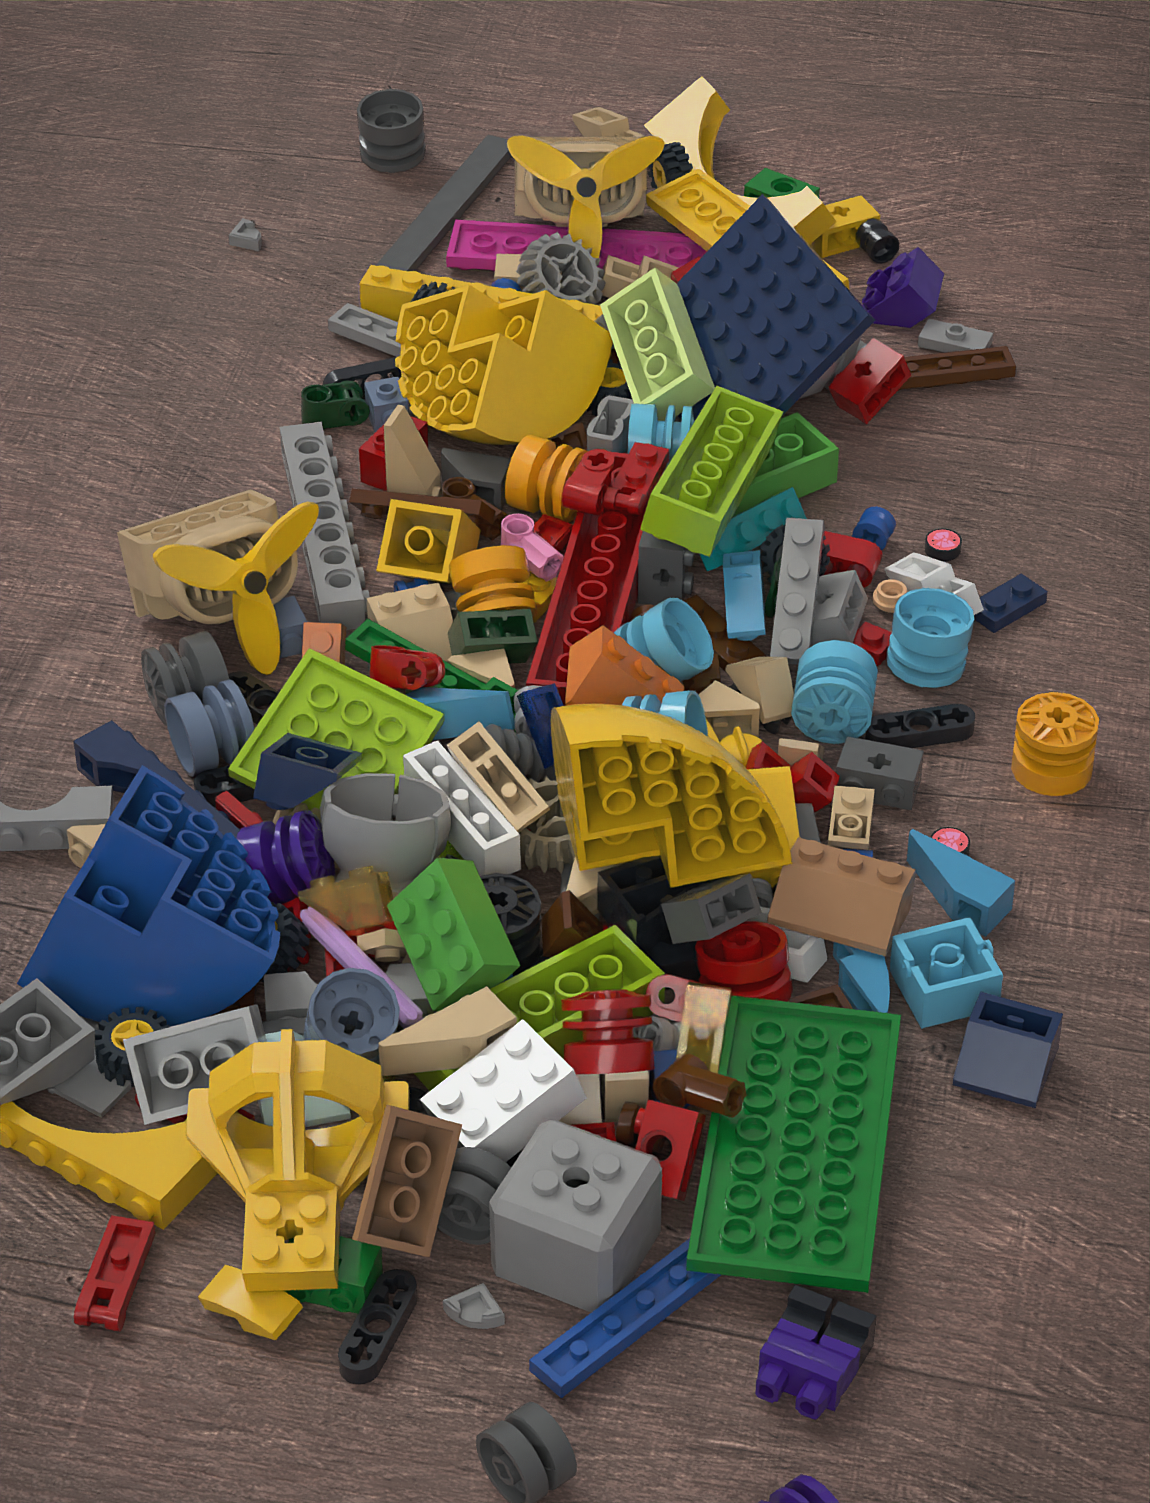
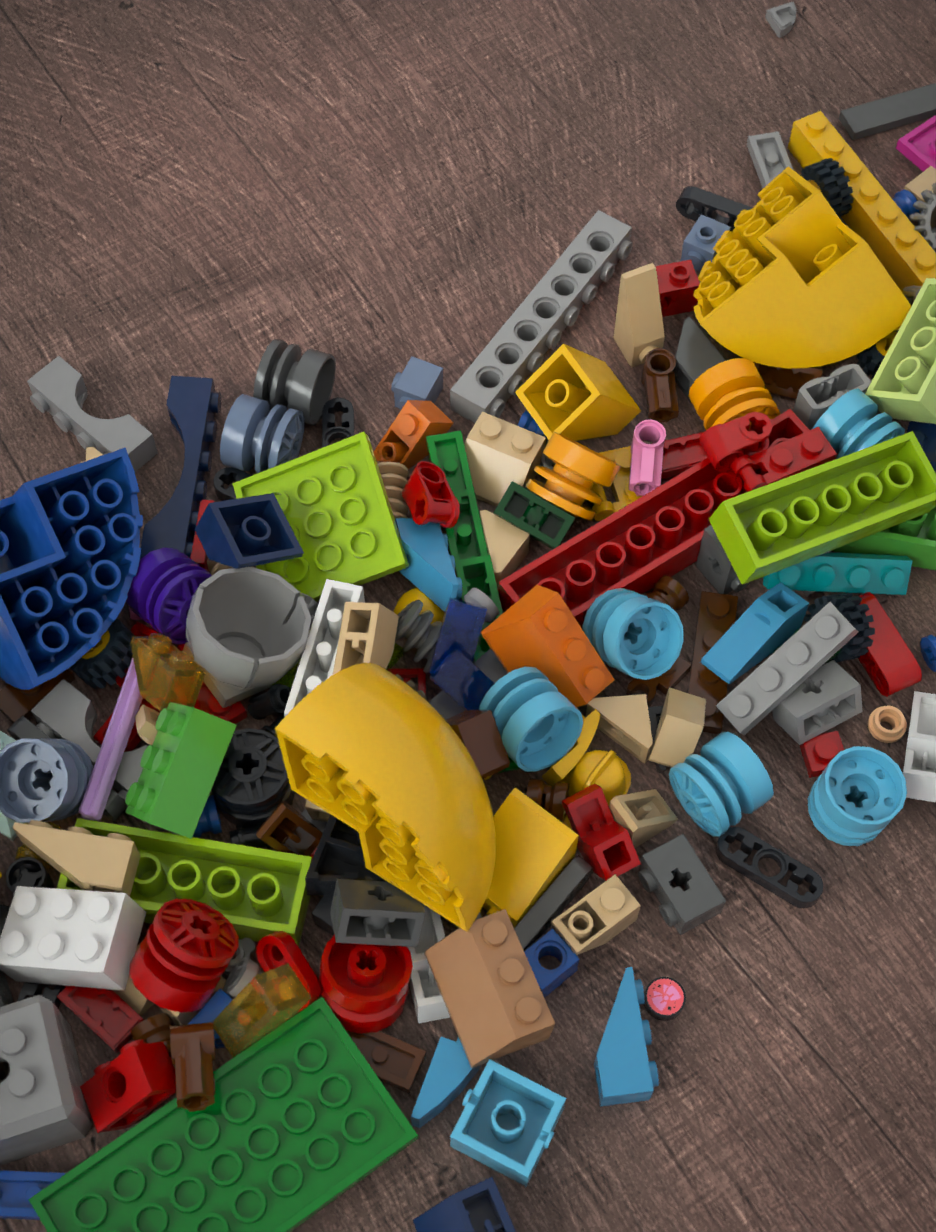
camera: 45 degrees right, 20 degrees up
(220, 567) = (398, 304): brick -> none
(332, 404) = (667, 215): dark green piece -> none
(376, 503) = (614, 352): reddish brown plate -> none
(1054, 744) = (835, 1008): light orange wheel -> none

